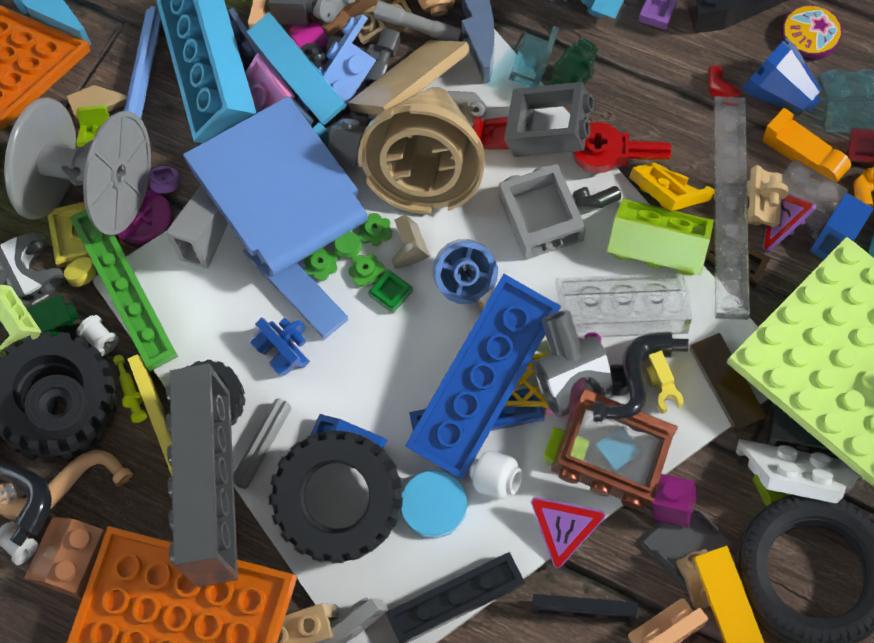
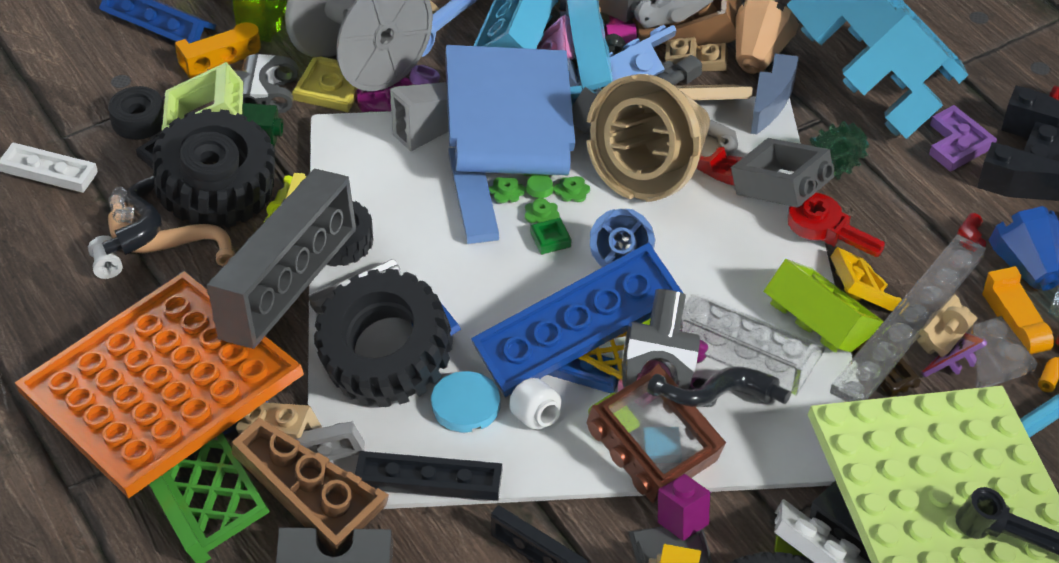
camera: 25 degrees right, 20 degrees down
(66, 556) = (134, 283): nougat slope -> none
(80, 272) = (307, 106): light yellow tile -> none
(97, 334) = (285, 155): white bush -> none
(126, 293) = (331, 121): bright green plate -> none
(272, 335) = (430, 223): blue hips -> none
(397, 16) = (709, 51): light grey piece -> none
(414, 245) = (595, 205): dark tan tile -> none
(532, 59) = (806, 128): clear light blue panel -> none
(549, 238) = (738, 262): light grey window -> none
(564, 526) = (566, 472): piece -> none
(598, 200) = (778, 253): pearl dark grey arm -> none
(660, 375) = (741, 406): light yellow plate -> none
(727, 384) = (803, 451): dark brown tile -> none
(843, 223) = (1020, 380): blue slope -> none

